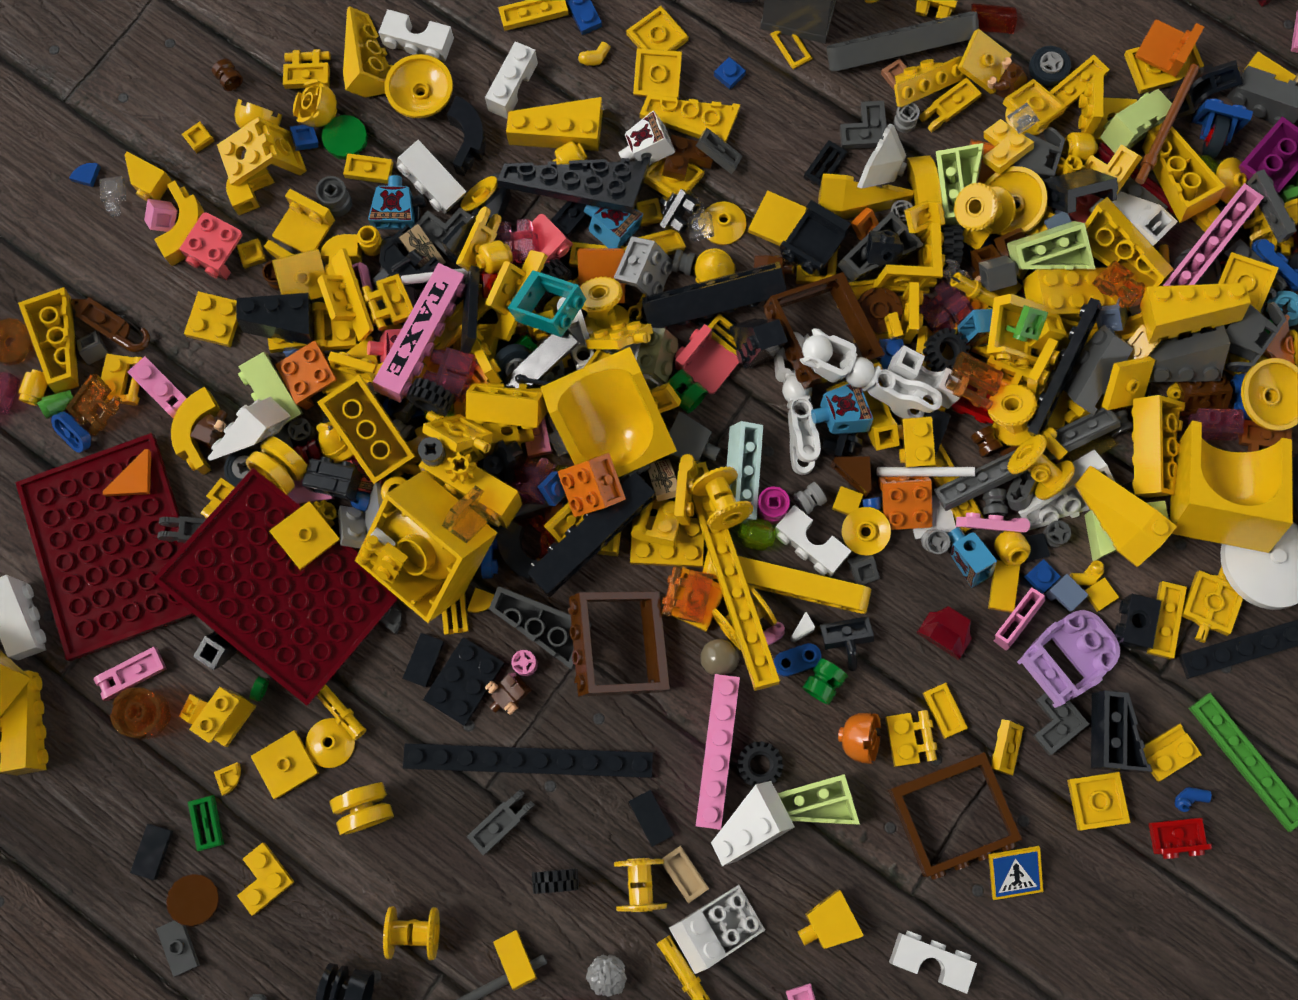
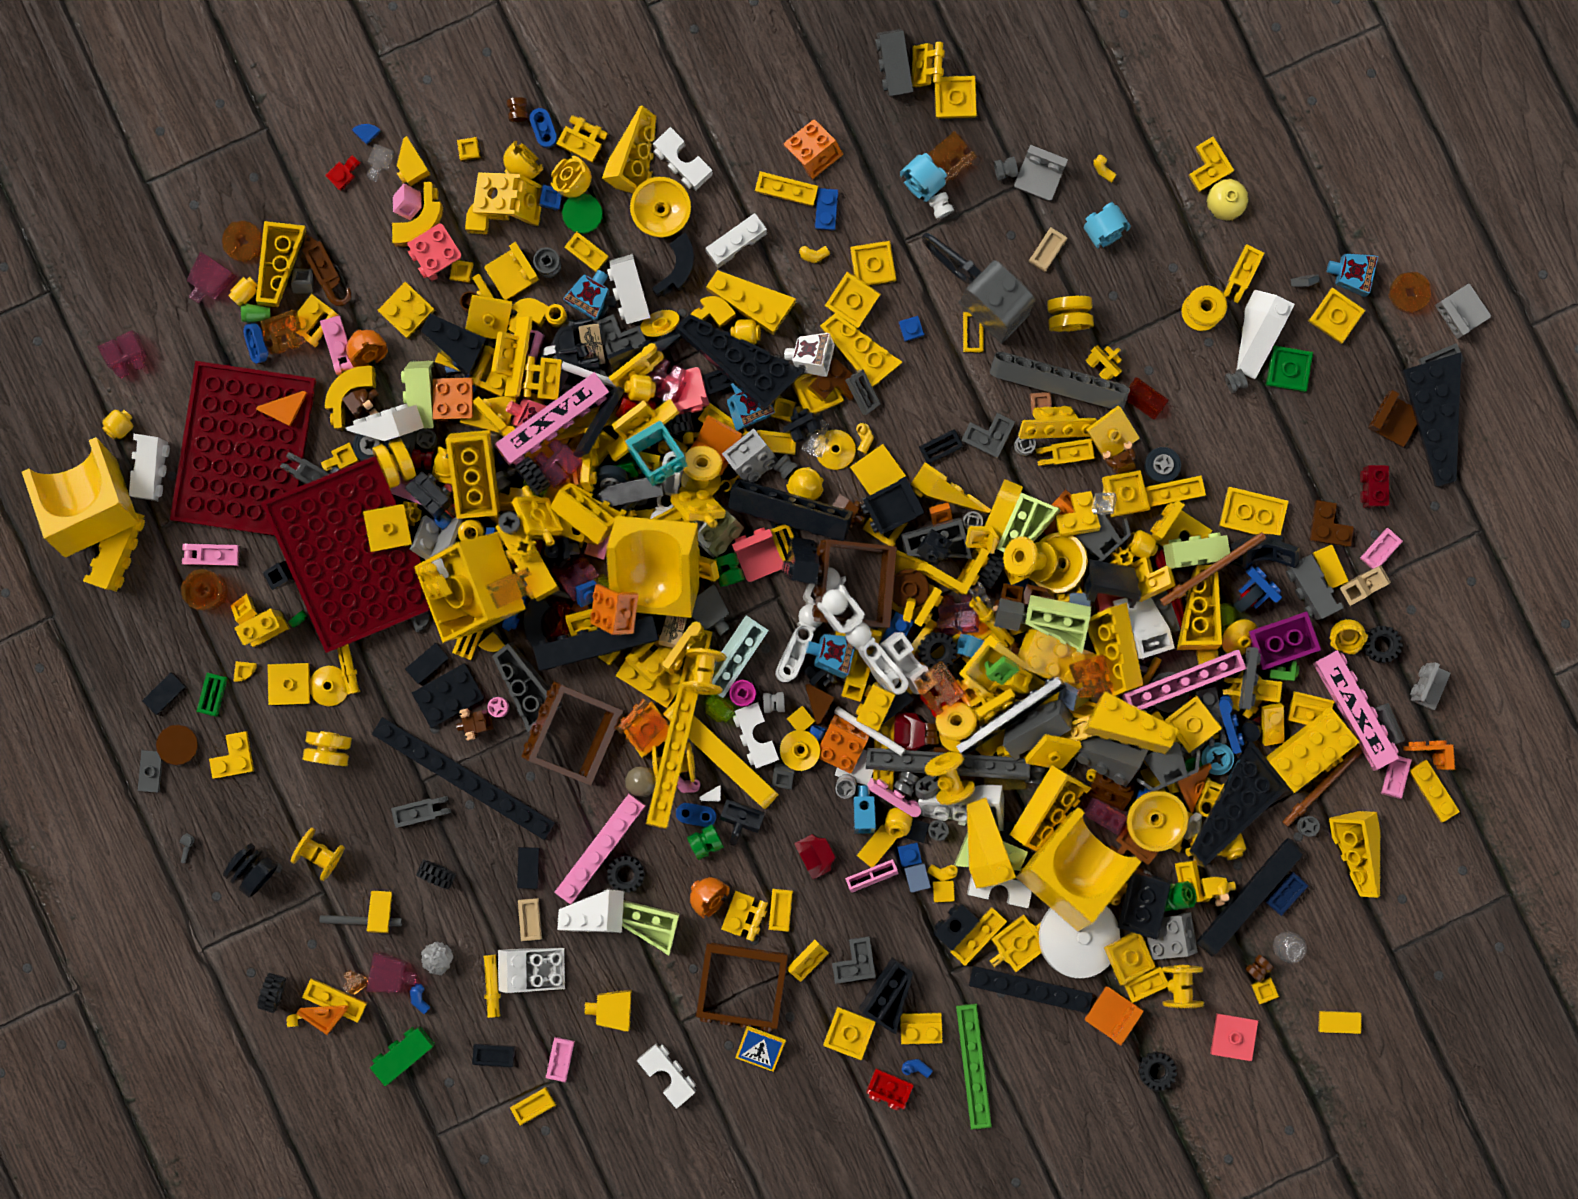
camera: 30 degrees right, 10 degrees up
(81, 225) = (341, 174): none -> red plate
(189, 373) = (365, 347): none -> orange cylinder
(263, 80) = (543, 129): none -> blue plate
(520, 379) = (607, 497): black hinge -> none
(529, 150) = (716, 308): none -> yellow brick
(640, 885) = (493, 910): yellow hose -> none
(746, 193) = (866, 436): none -> yellow arm
(885, 161) = (980, 478): white wedge -> none
(966, 449) = (909, 731): none -> dark red slope
(1052, 444) = (968, 766): yellow arm -> none
(1085, 643) = (910, 920): lavender slope -> none
(1168, 47) = (1258, 503): orange bracket -> none
(1177, 551) = (1017, 892): none -> white arch
(1240, 43) = (1325, 530): none -> reddish brown plate

